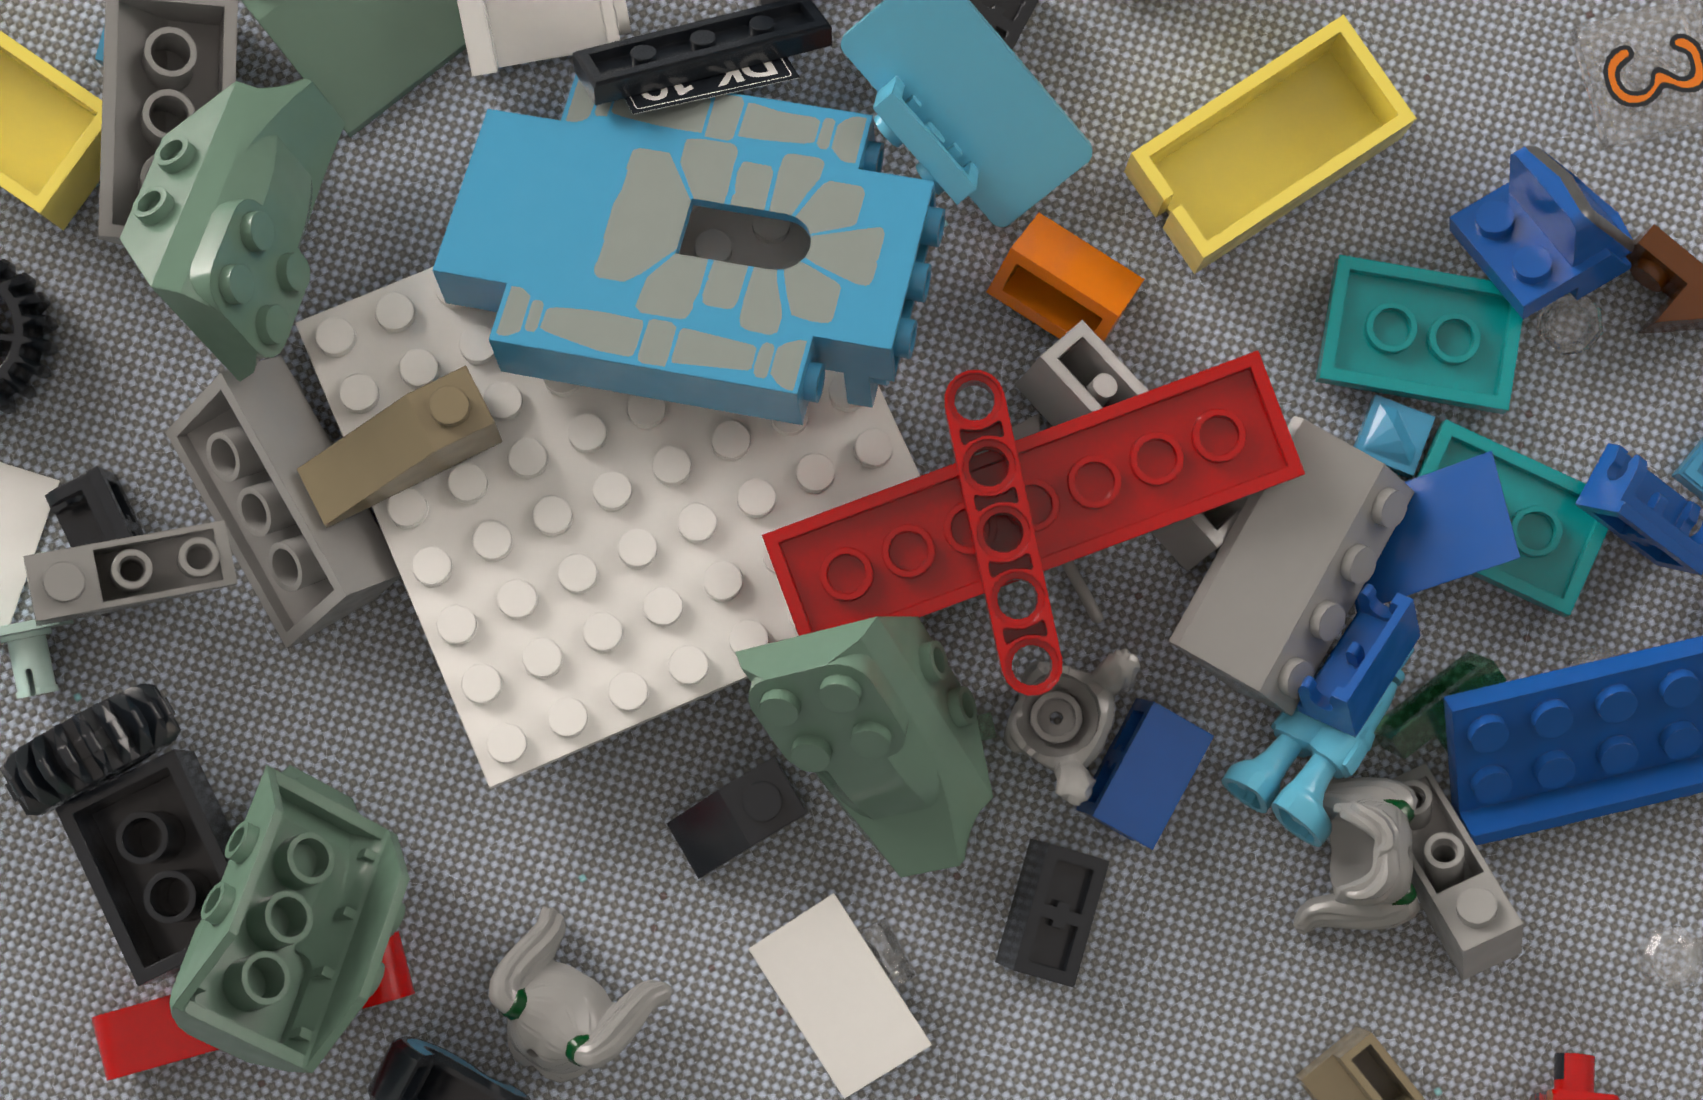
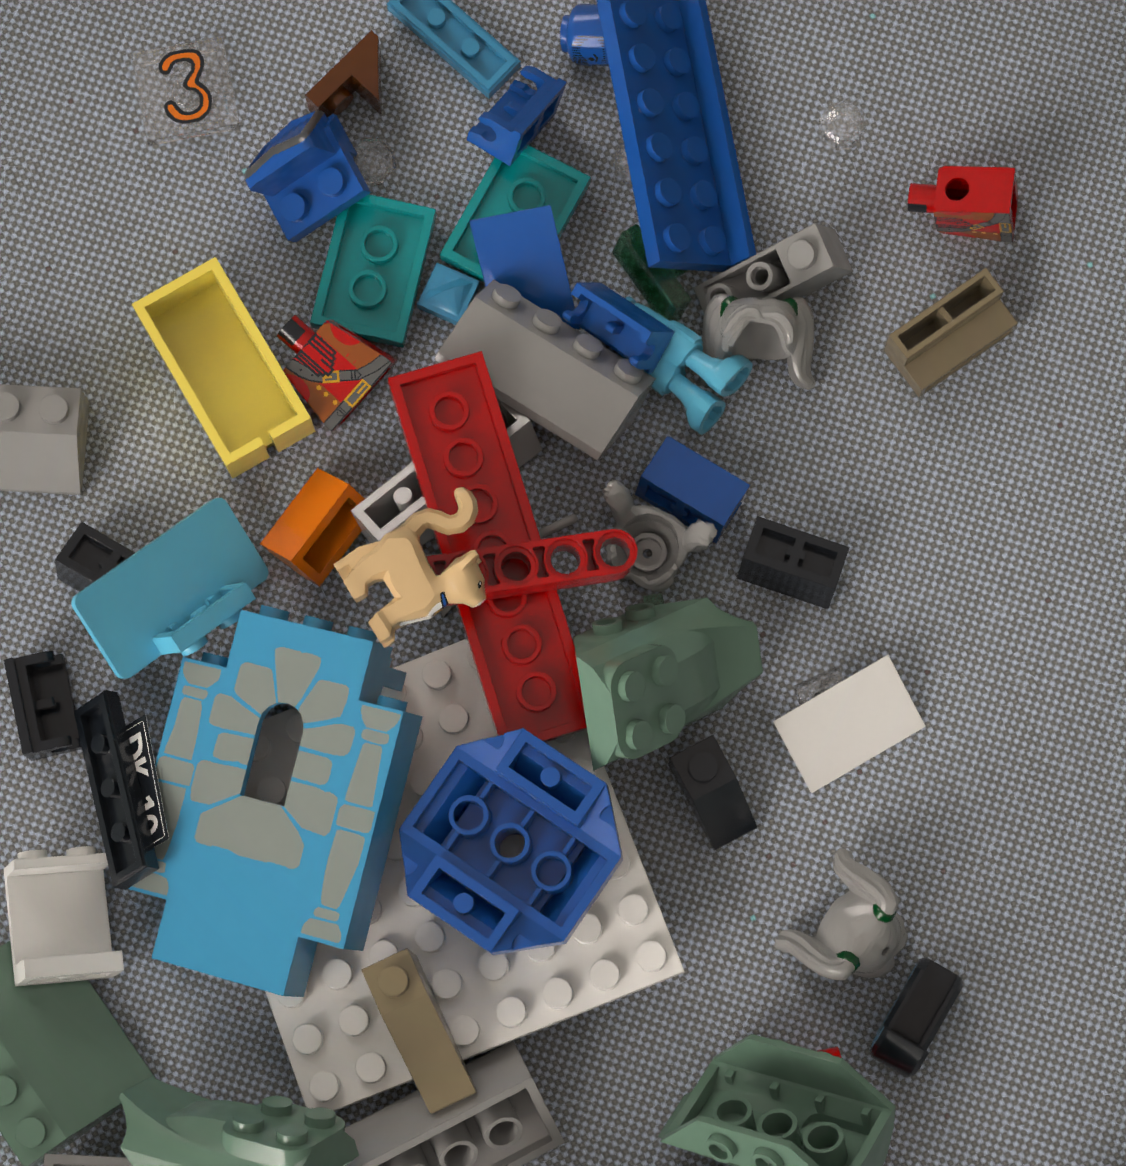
camera: 90 degrees left, 5 degrees down
(618, 481) = (499, 791): none -> blue piece
(976, 384) = (407, 573): none -> tan animal
(1277, 286) = (332, 368): none -> torso

